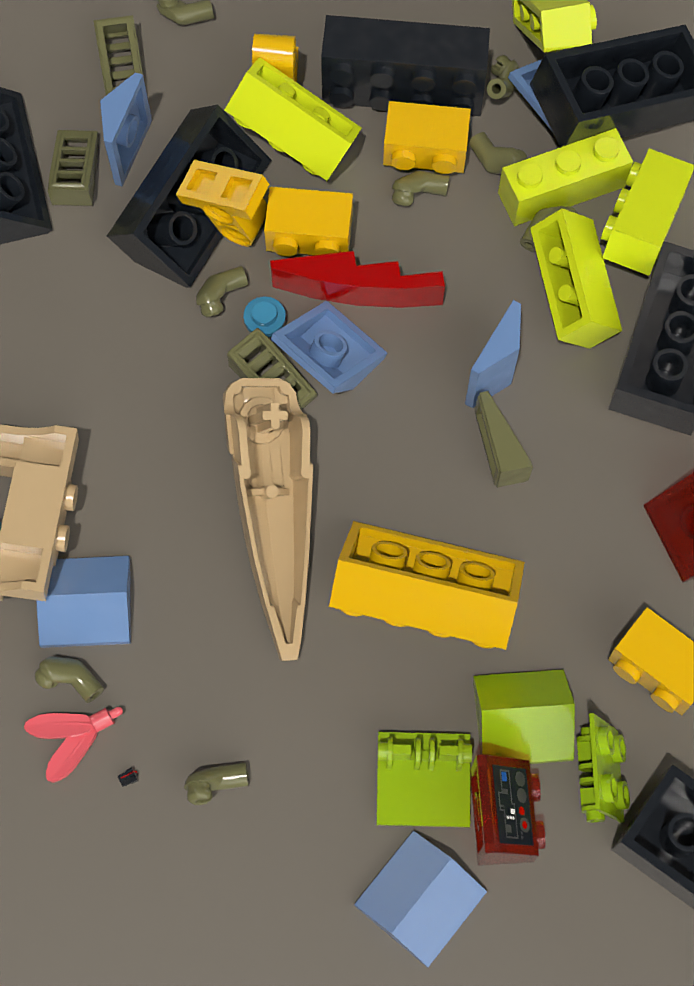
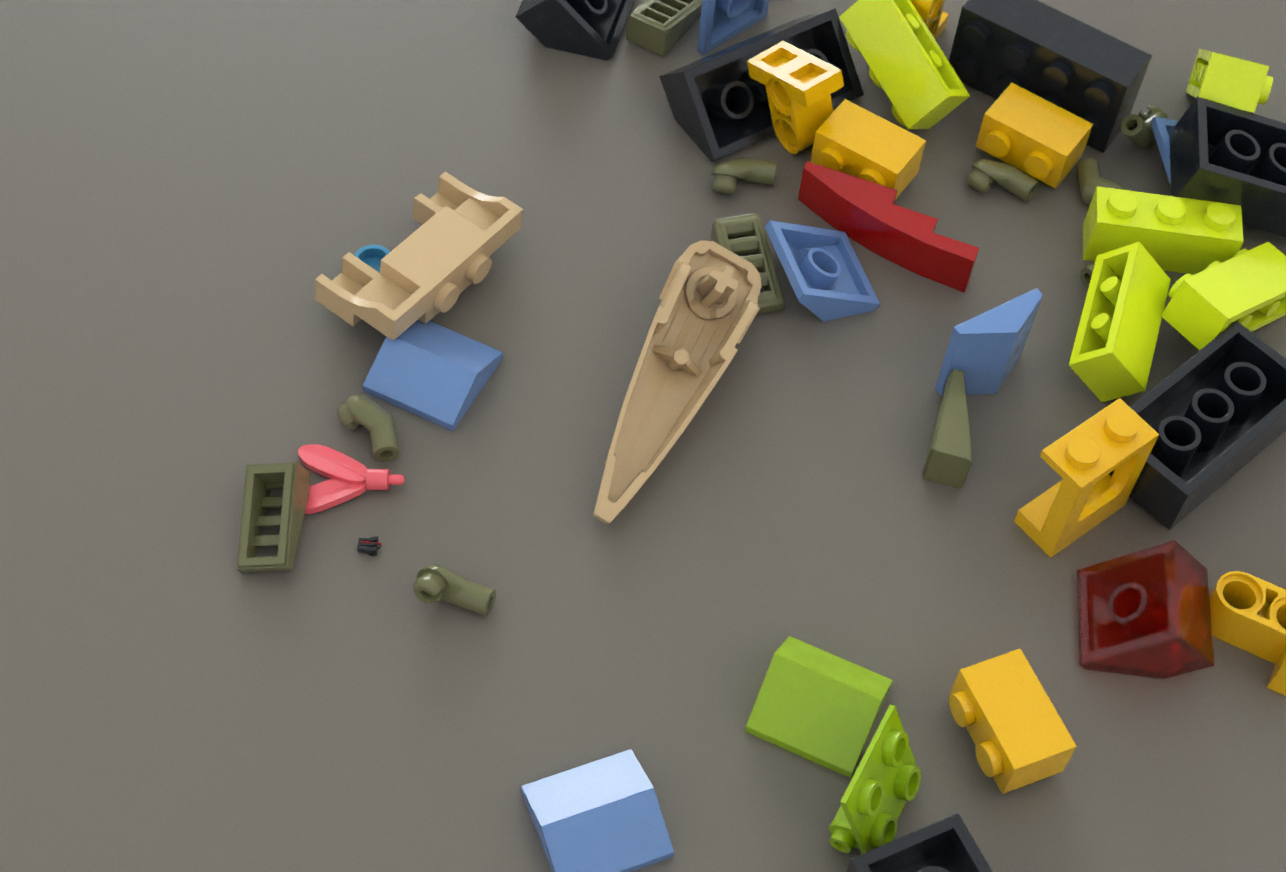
camera: 25 degrees right, 15 degrees down
(59, 793) = (256, 500): none -> olive slope
(264, 314) = (773, 208): dark azure plate -> none
(423, 779) = (672, 704): lime hinge -> none
(427, 585) = (790, 523): yellow slope -> none
(504, 810) = (741, 770): clear red slope -> none
(622, 437) = (1088, 494): none -> yellow window

